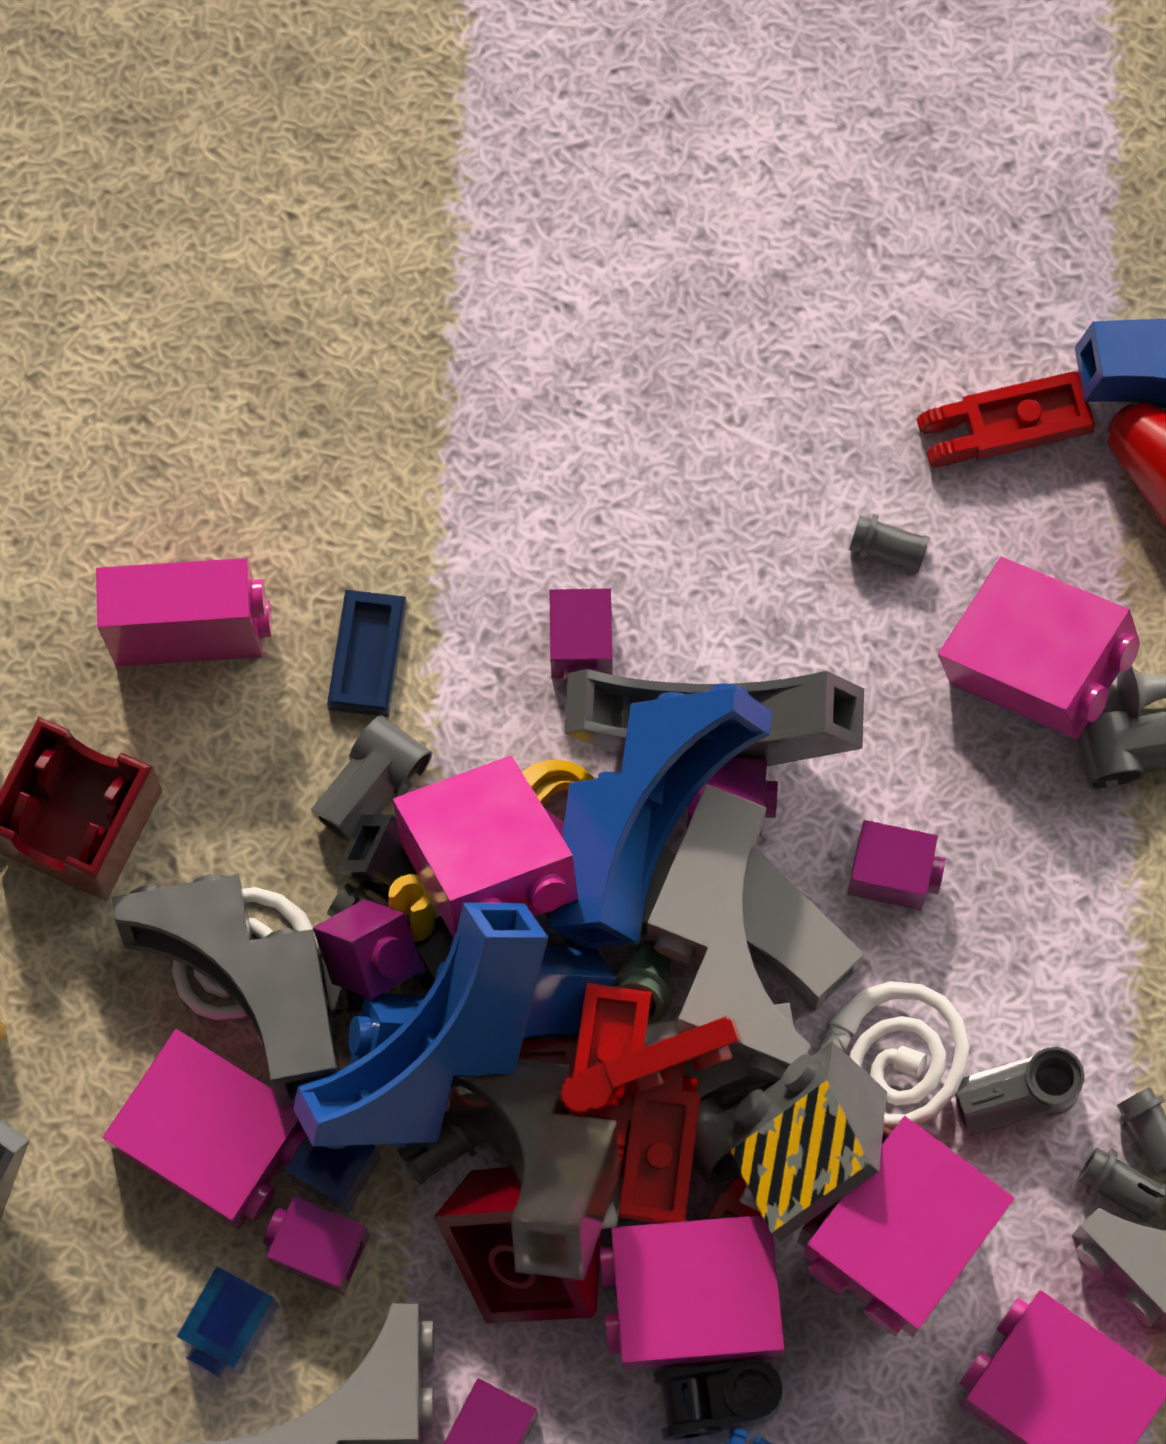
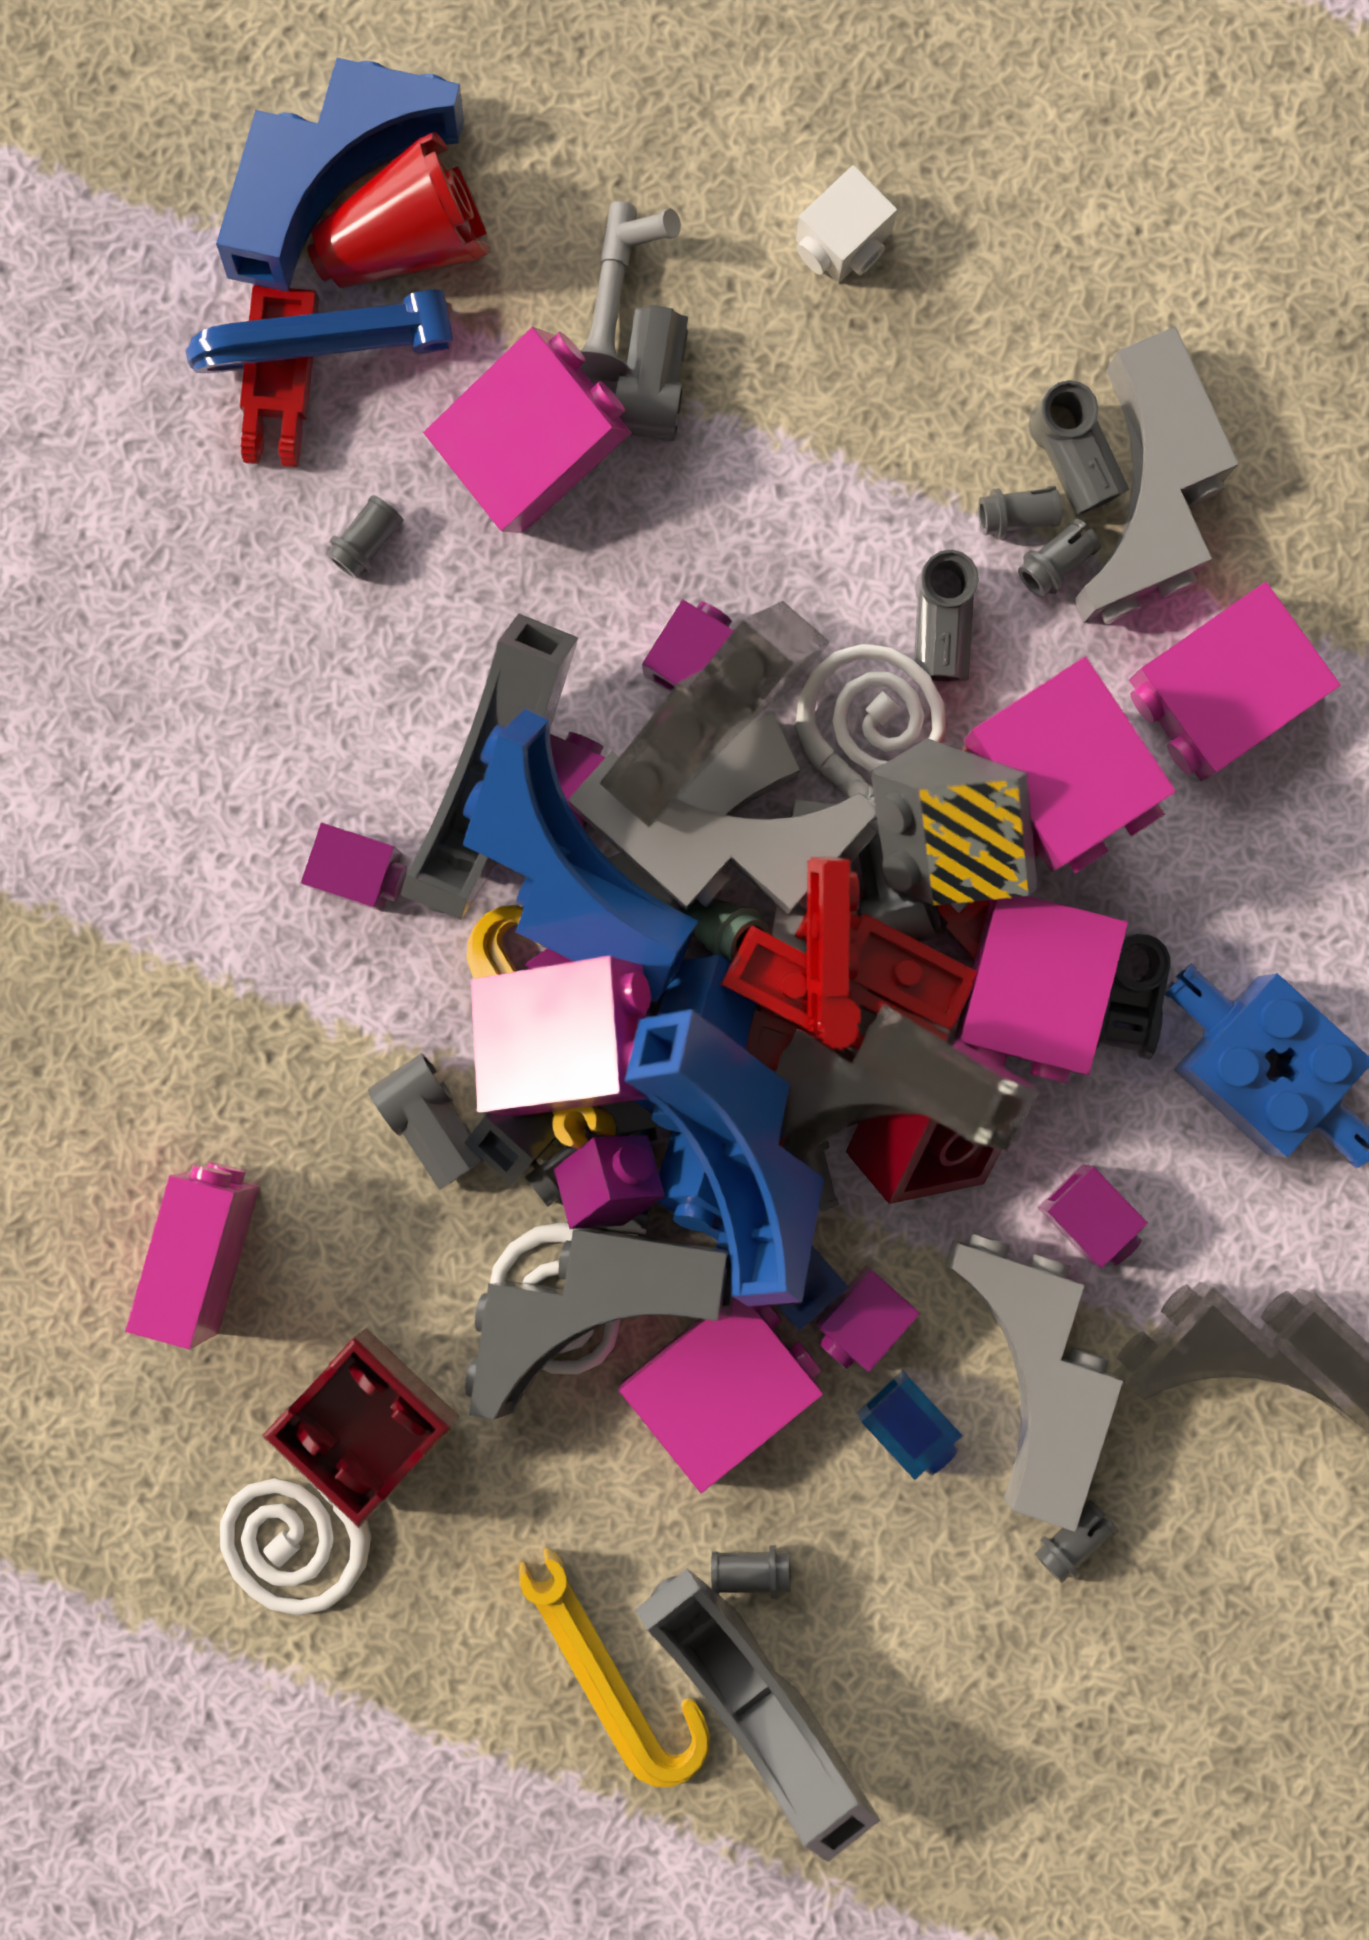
camera: 70 degrees left, 15 degrees up
(40, 1221) = (751, 1572): none -> dark grey pin
(367, 653) = (293, 1082): dark blue tile -> none
(825, 871) = (711, 708): none -> clear smoke arch
(1102, 521) = (418, 322): none -> blue piece

